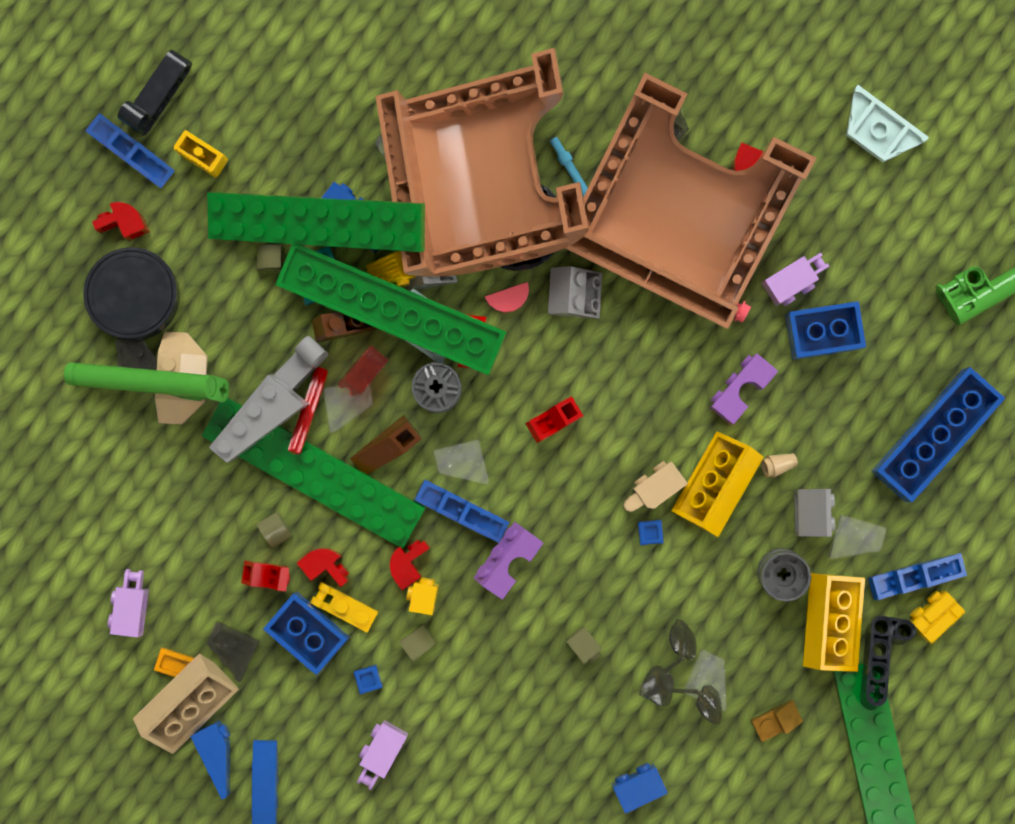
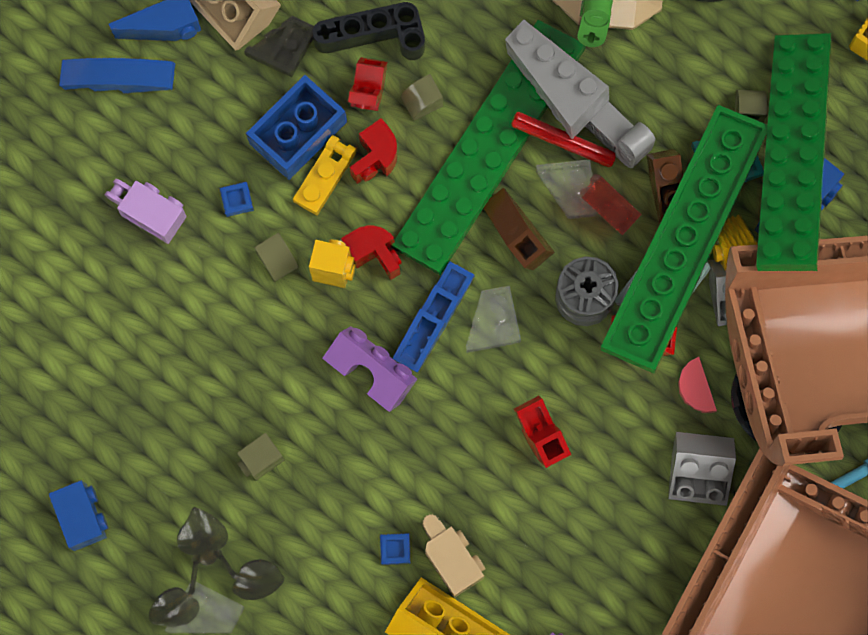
camera: 90 degrees right, 10 degrees down
(220, 577) = (369, 34): none -> black beam

